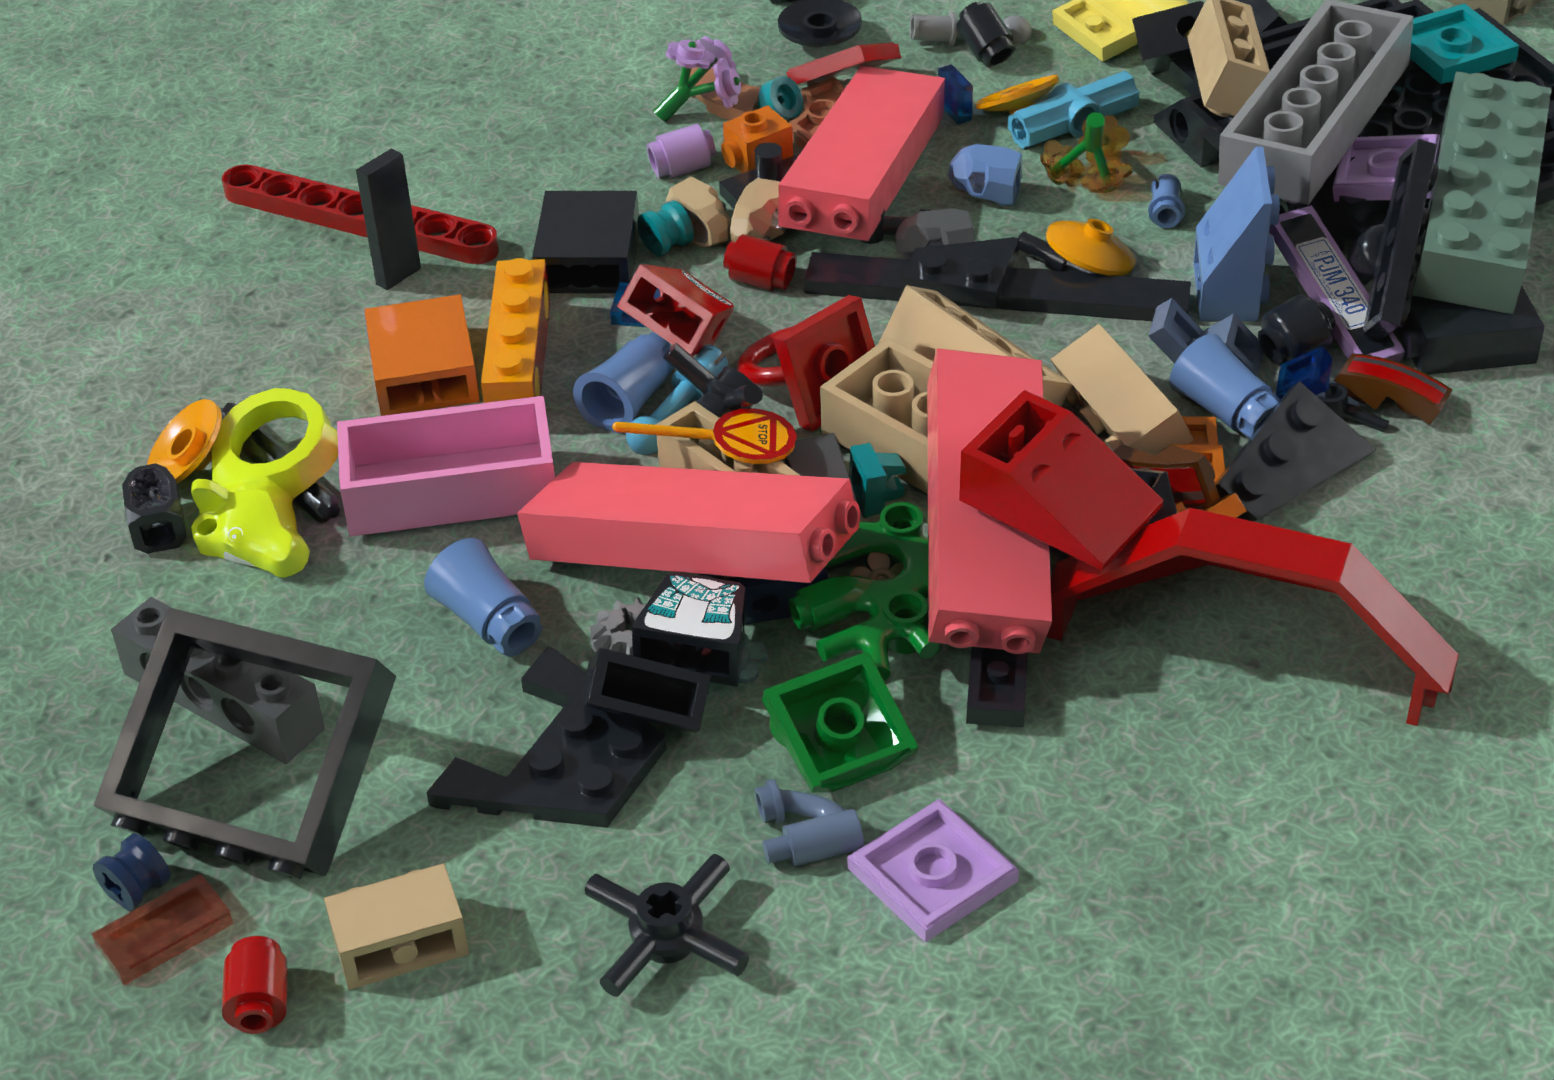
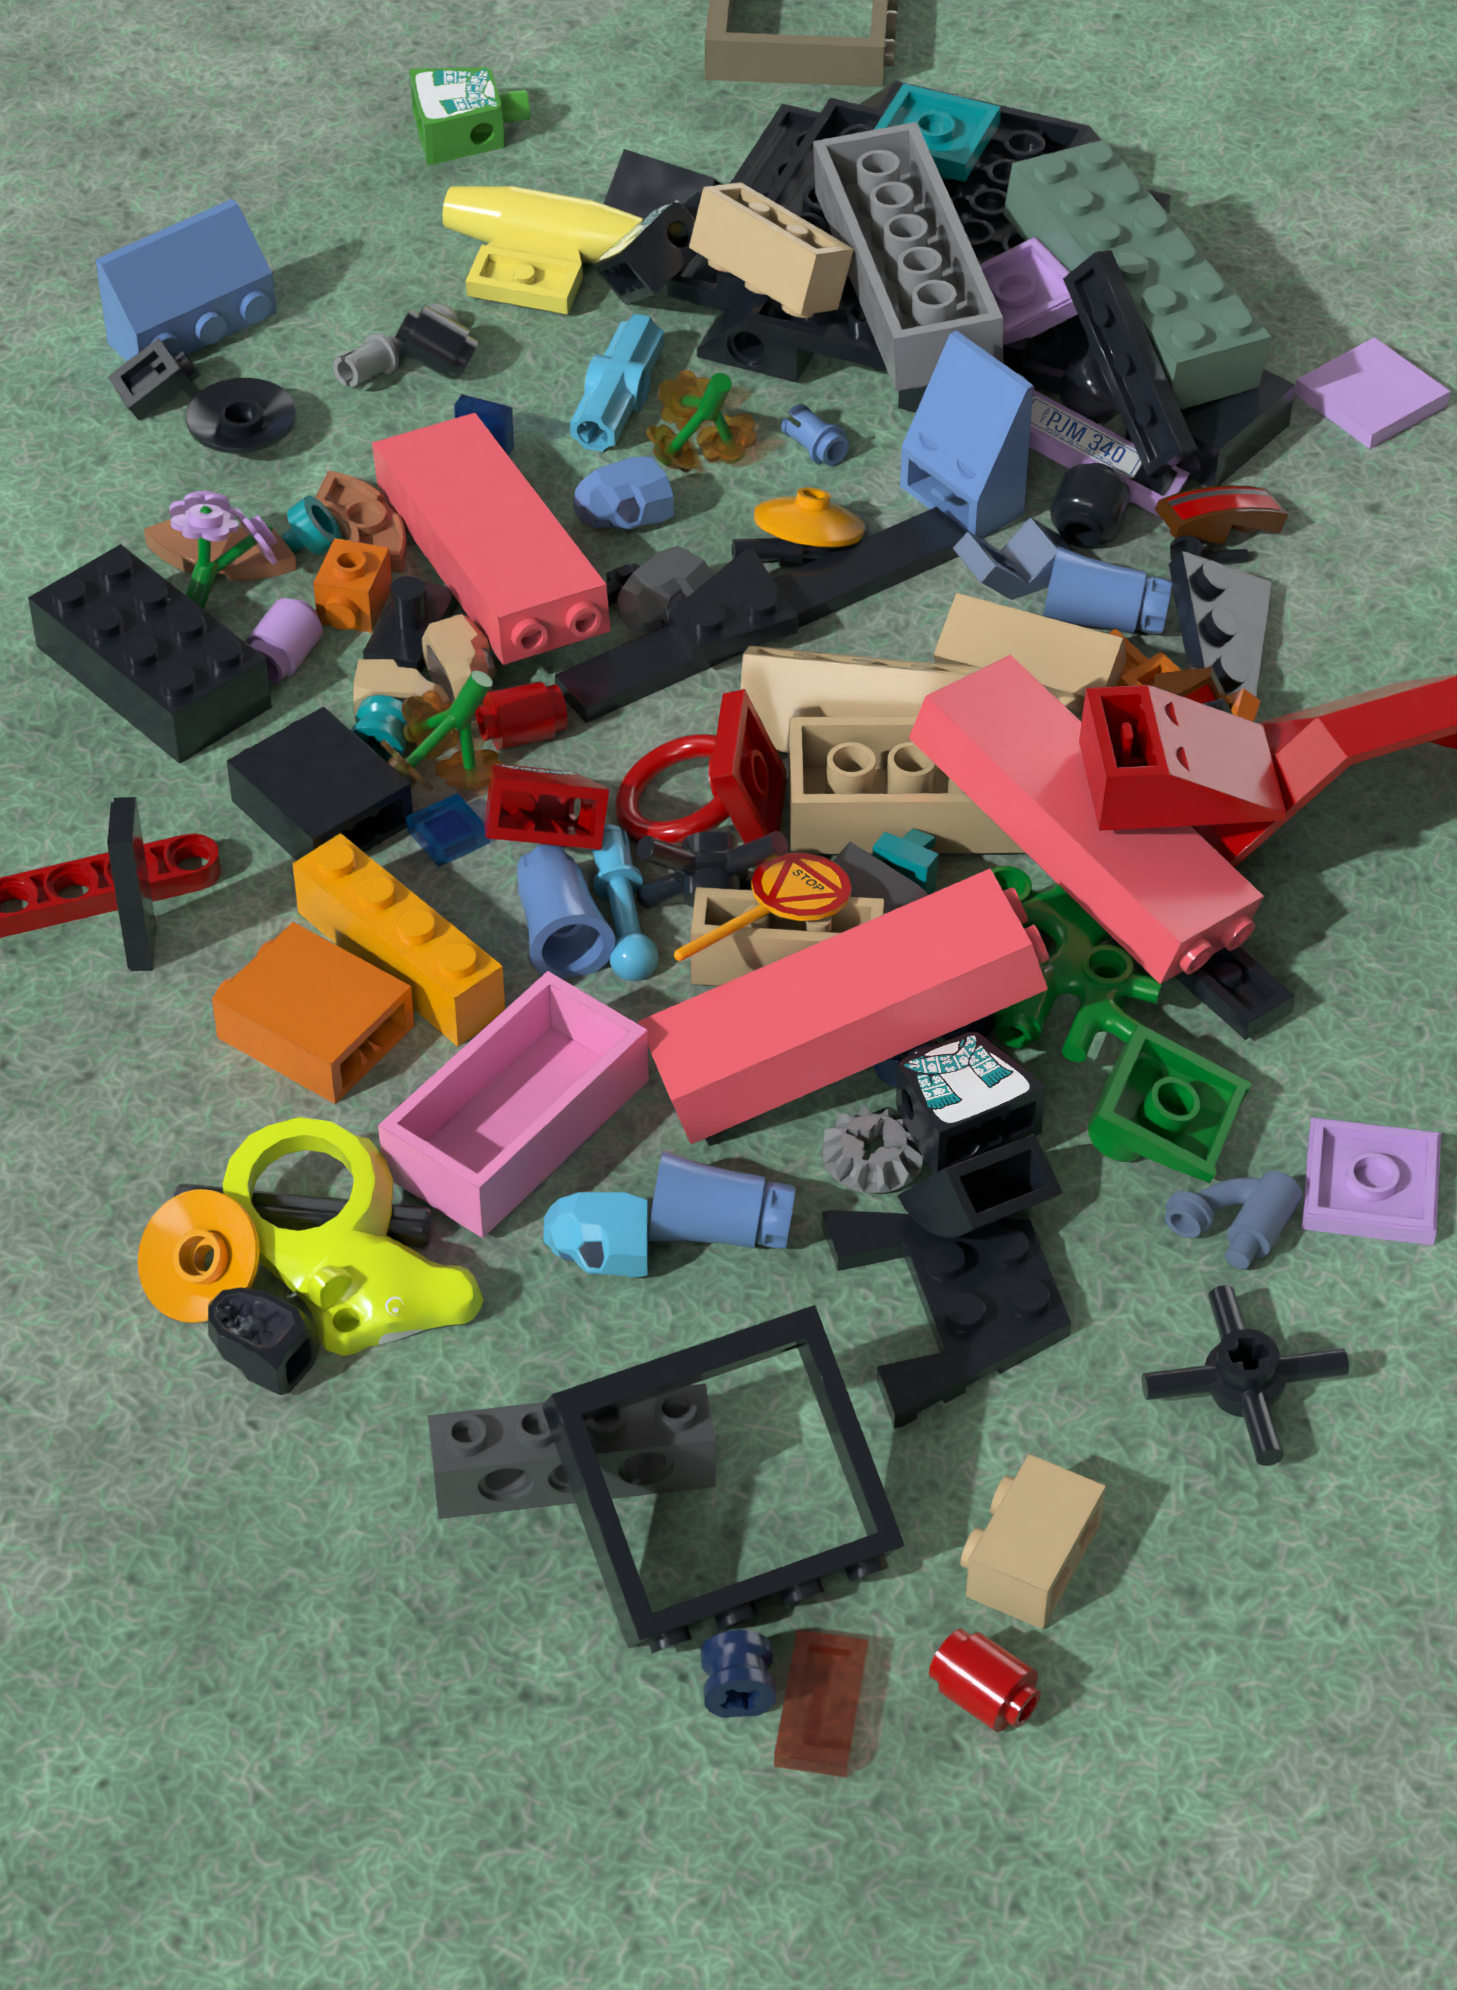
camera: 45 degrees left, 5 degrees up
(400, 572) = (600, 1232): none -> medium azure rock
(594, 119) = (150, 653): none -> black brick
(689, 237) = (433, 728): none -> plant
(844, 62) = (337, 450): red tile -> none
(1017, 96) = (549, 391): light orange dish -> none
(1310, 369) = (1142, 544): clear blue tile -> none

